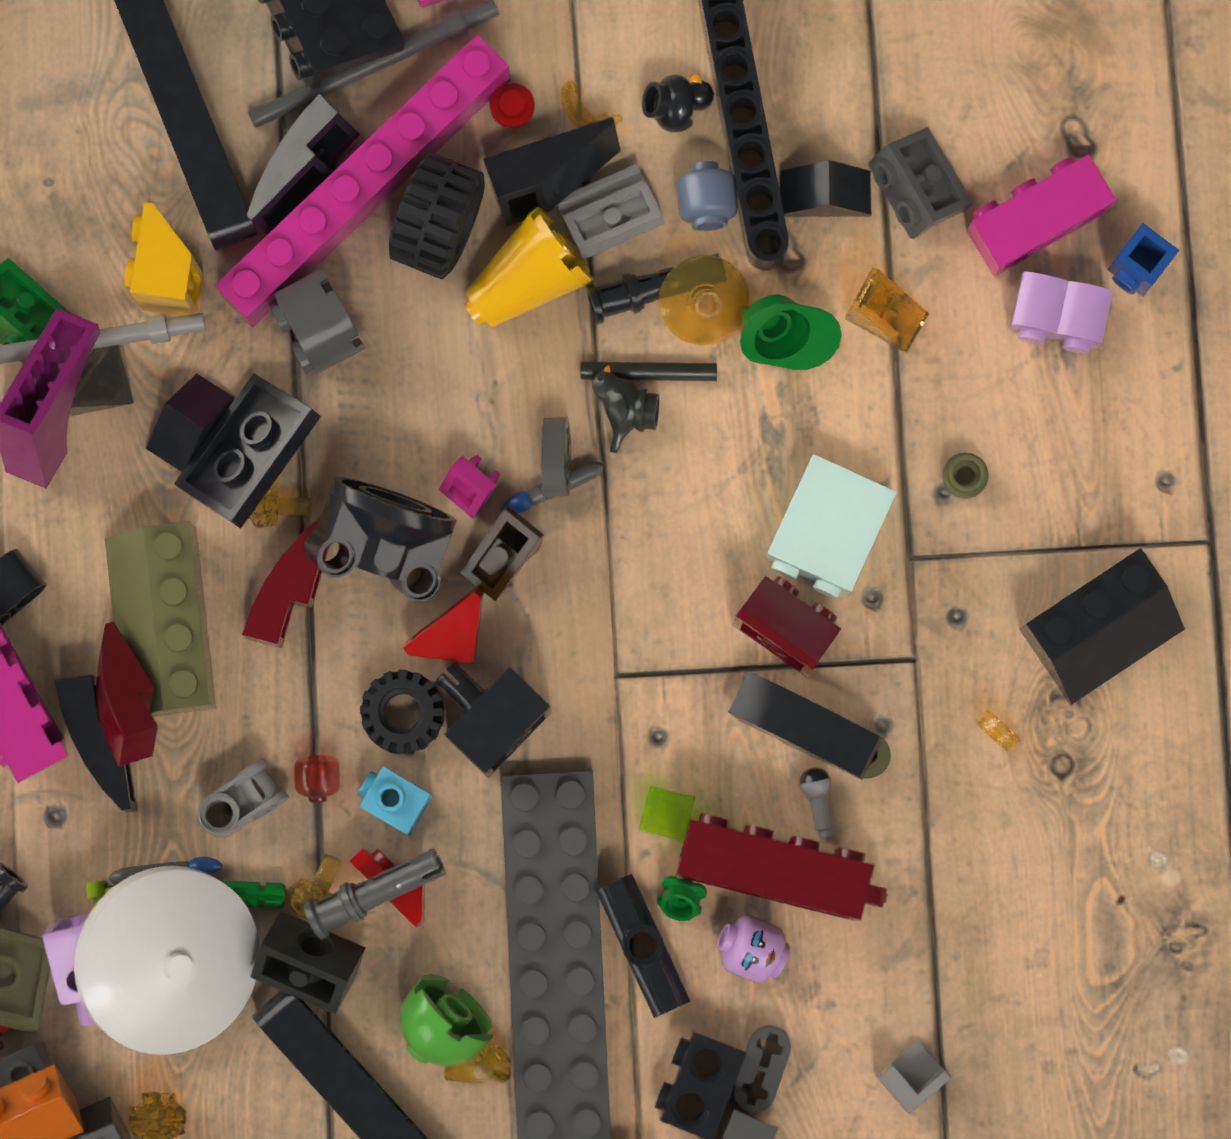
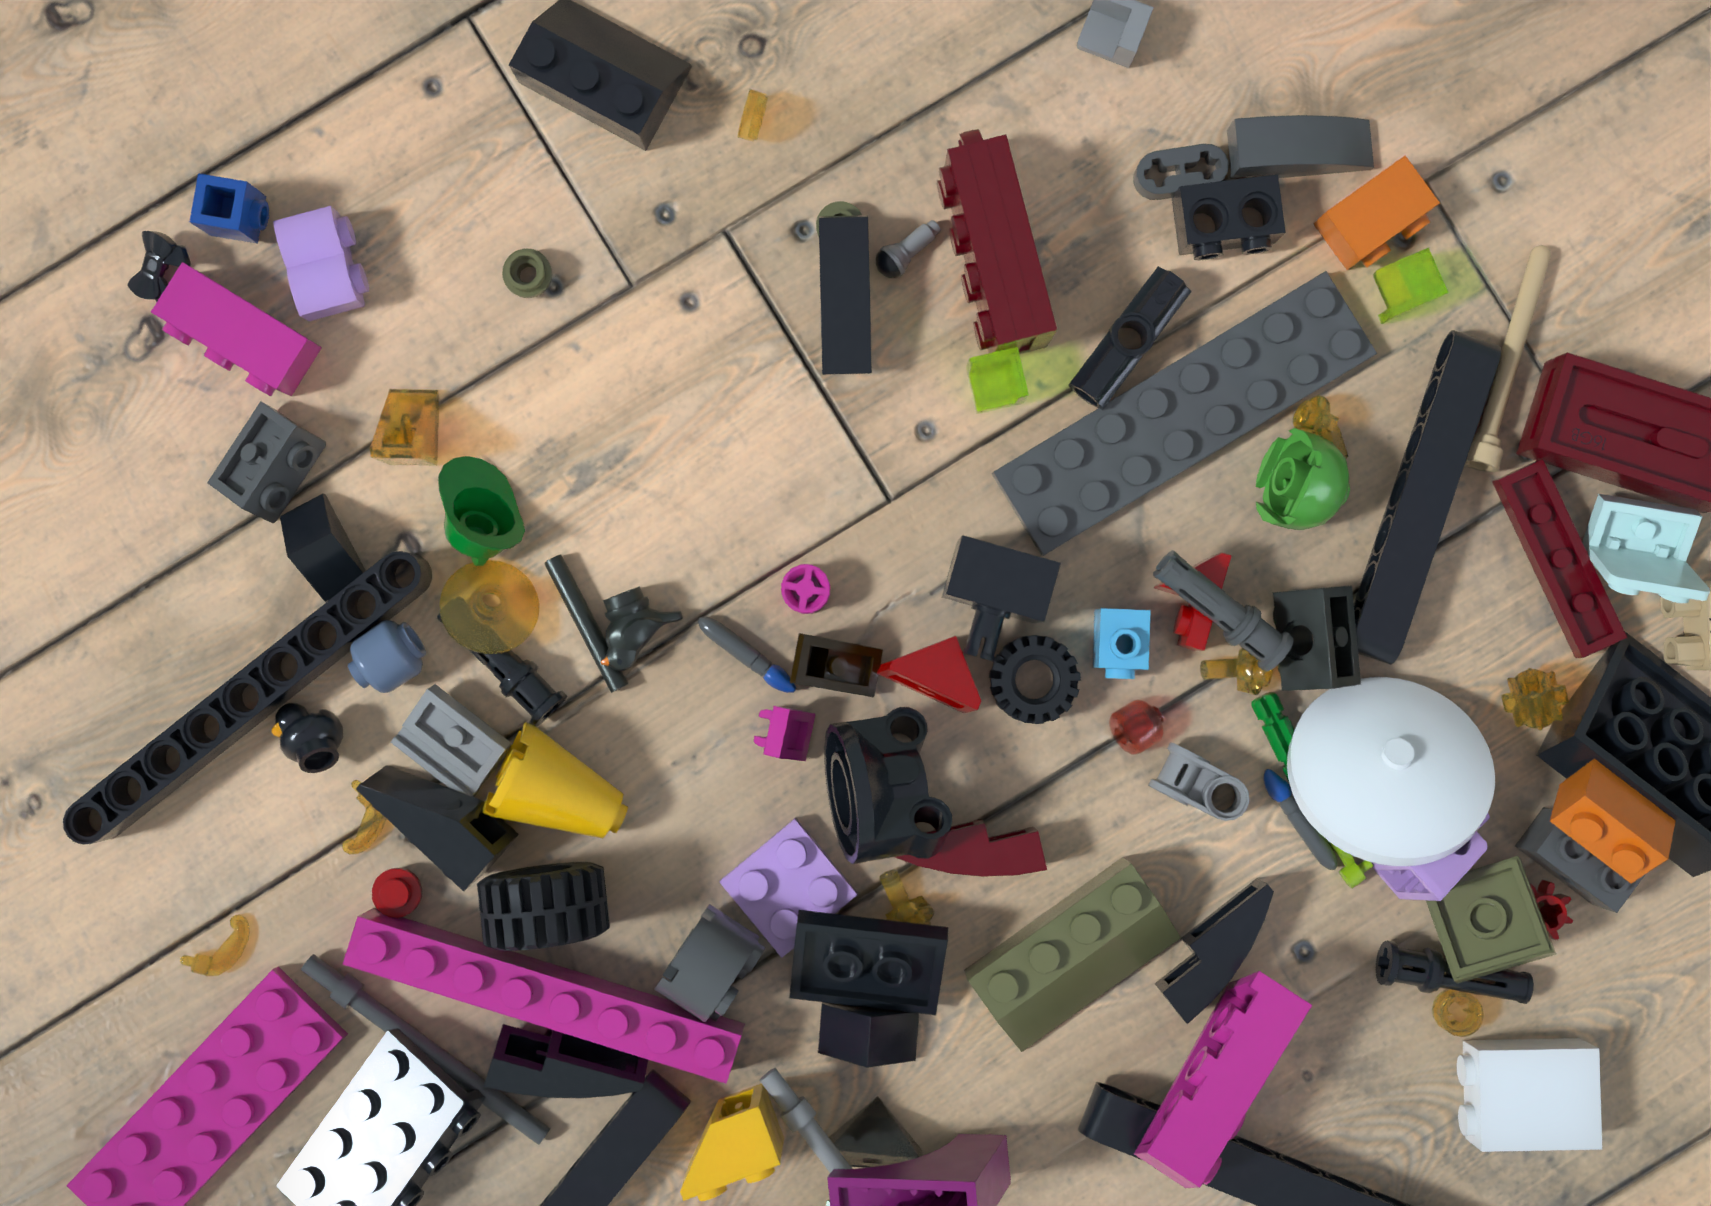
camera: 115 degrees left, 5 degrees up
(124, 700) = (1172, 947): dark red slope -> none
(352, 421) = (783, 878): none -> lavender plate
(556, 457) = (716, 664): dark grey beam -> none
(578, 552) = (804, 587): none -> dark pink wheel
(681, 898) = (1071, 327): green plate -> none
(753, 949) = (1078, 234): lavender head -> none
(787, 624) = (759, 359): dark red slope -> none
(829, 527) = (644, 371): light aqua brick -> none
(1139, 187) = (159, 254): none -> black piece

